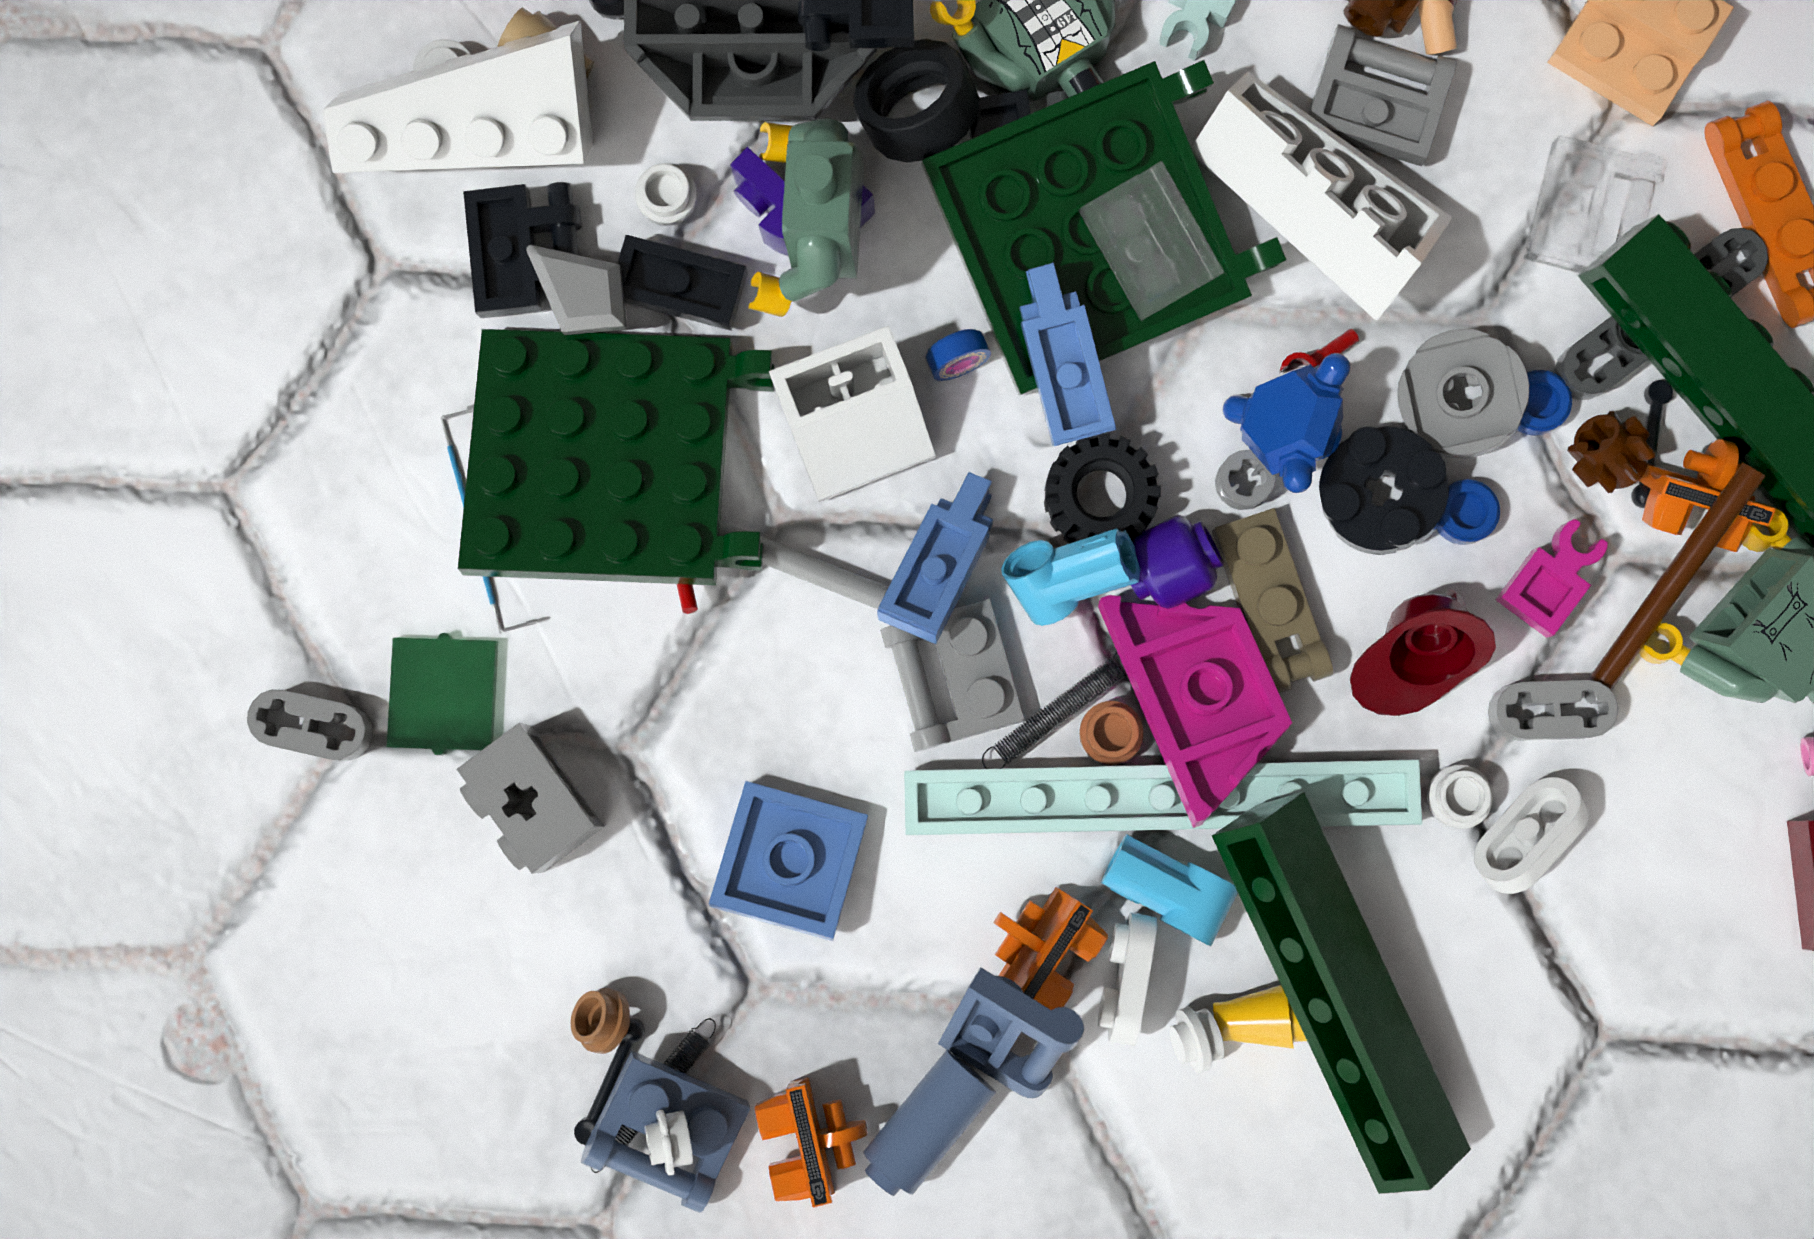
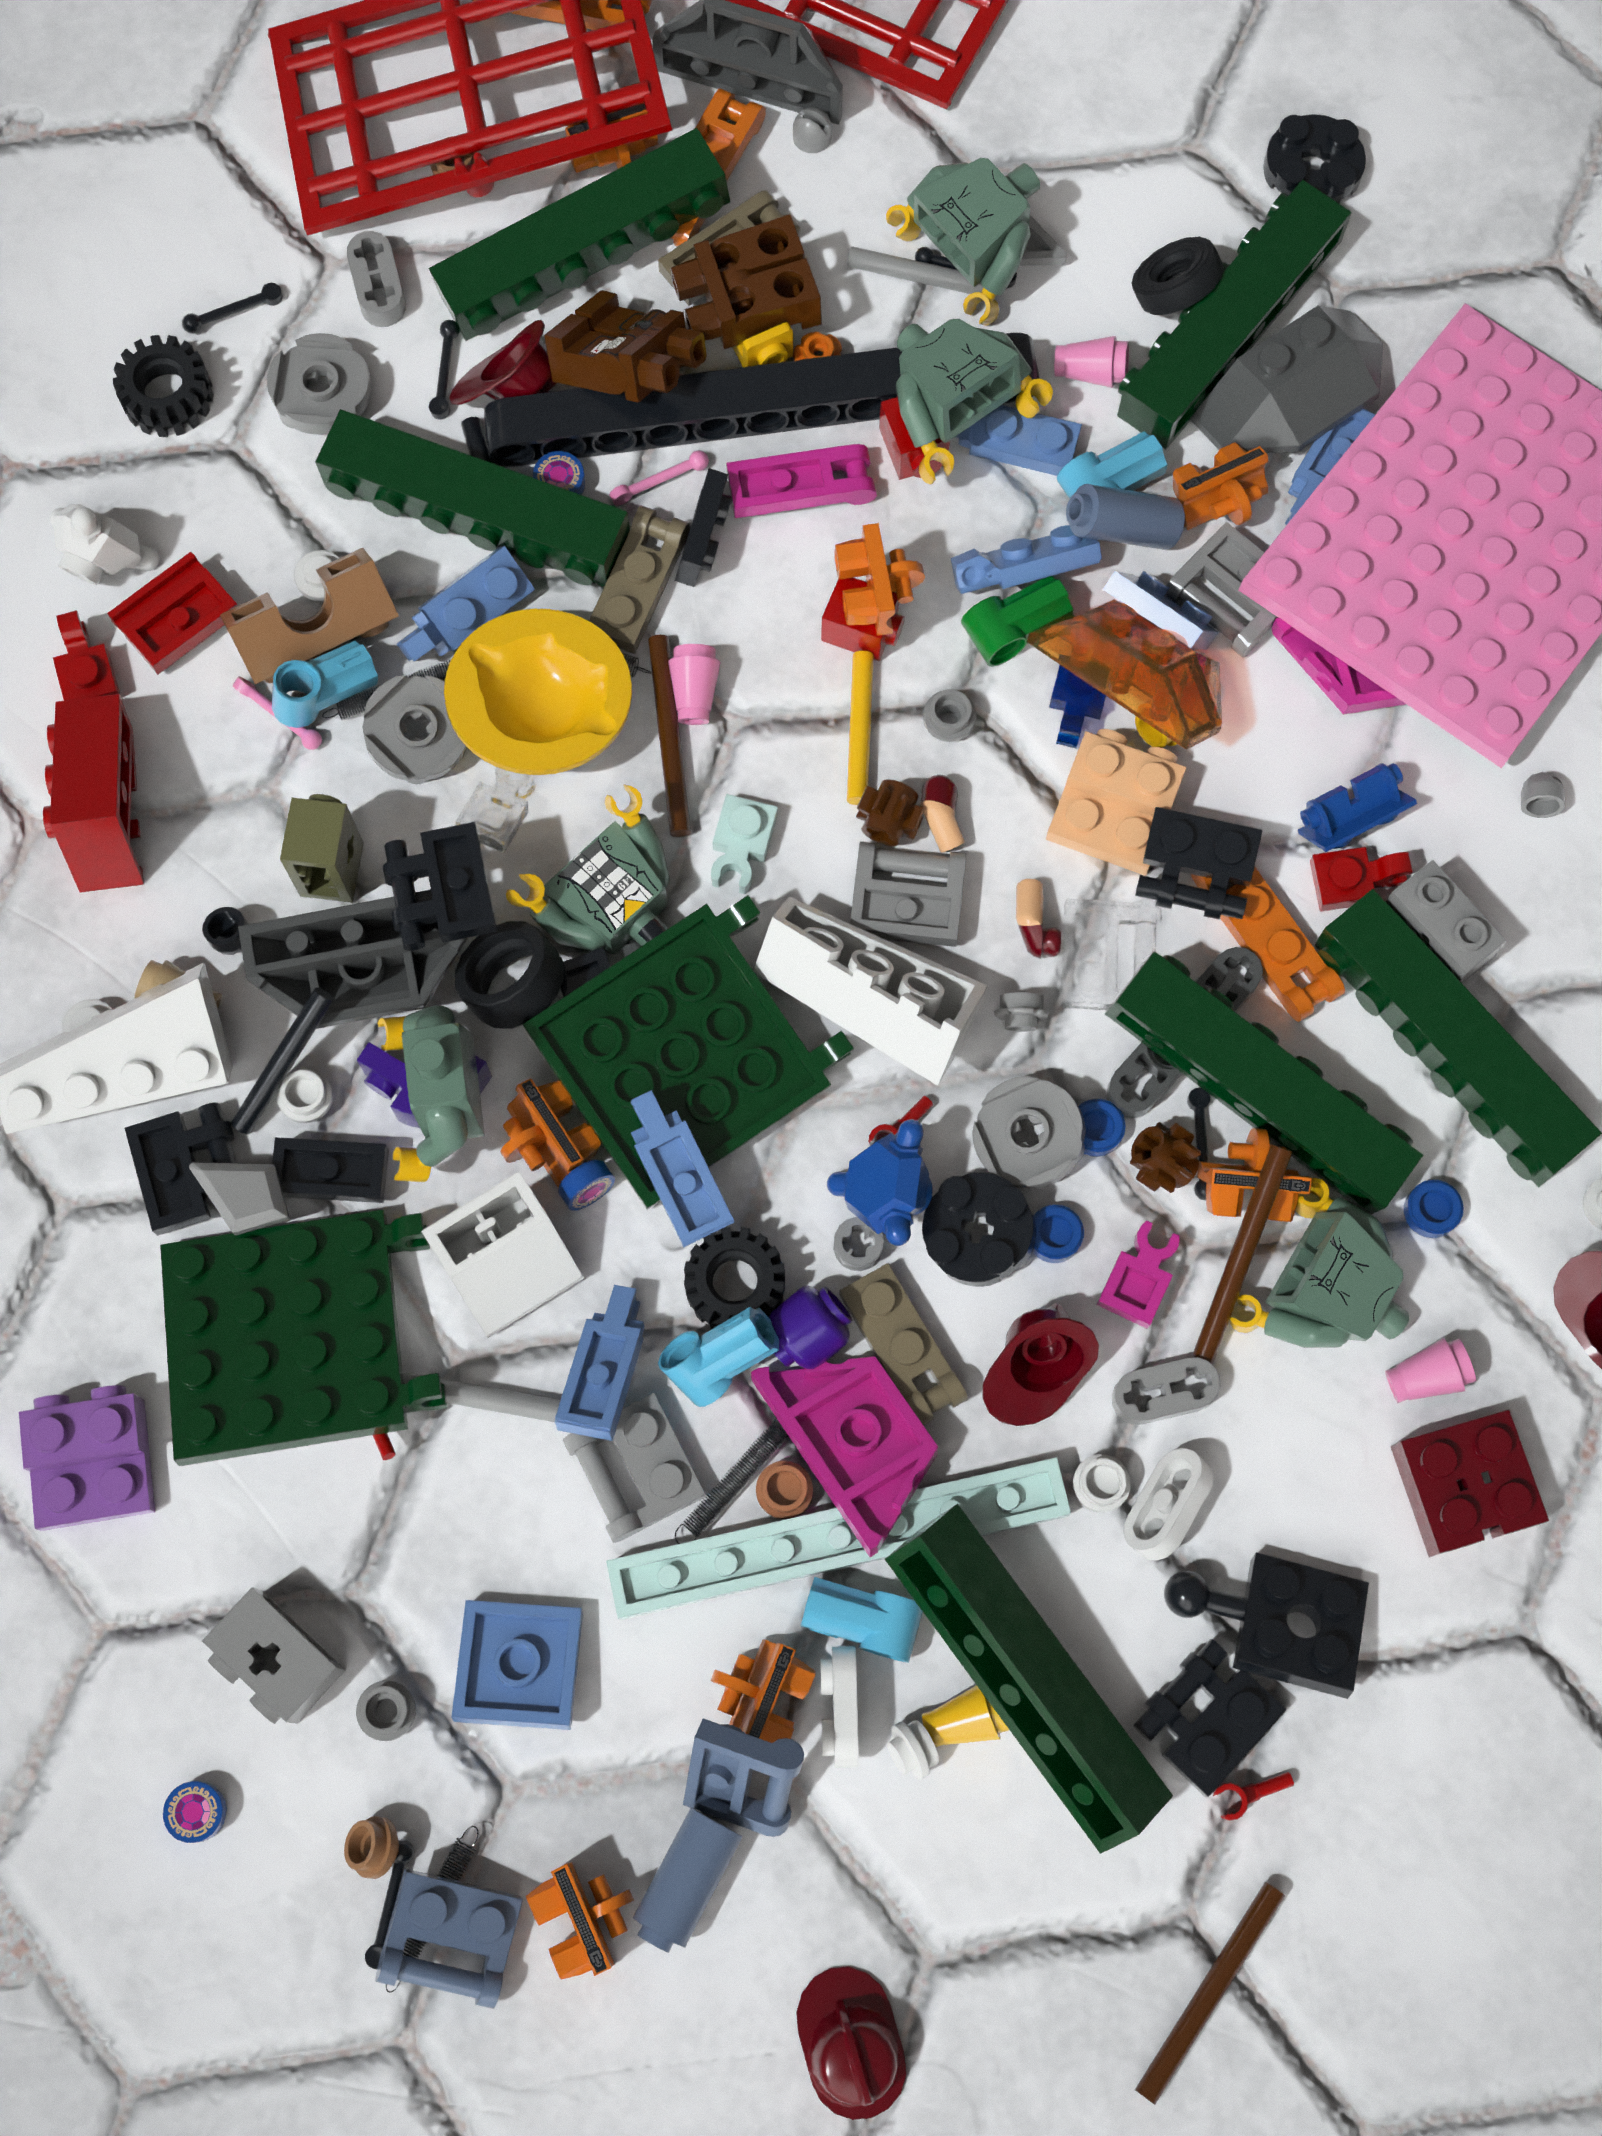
camera: 20 degrees left, 10 degrees down
(307, 739) = (60, 1617): light grey beam -> none
(367, 545) = (87, 1458): none -> medium lavender plate
(421, 943) = (194, 1812): none -> tile
(442, 694) = (176, 1579): clear green piece -> none
(470, 408) = (166, 1394): piece -> none
(620, 875) = (367, 1710): none -> light grey plate
(649, 148) = (282, 1060): none -> black bar
(669, 1141) = (452, 1940): white plate -> none
(917, 289) = (539, 1135): none -> orange hips
(1151, 240) = (733, 1055): clear plate -> none
(1481, 254) = (1021, 1011): none -> light grey plate
(1513, 153) = (1030, 920): none -> arm
(1535, 1087) = (1221, 1731): none -> black plate
(1551, 1160) = (1253, 1792): none -> red hand
(1606, 997) = (1264, 1638): none -> black plate
(1733, 106) = (1199, 848): none -> black plate

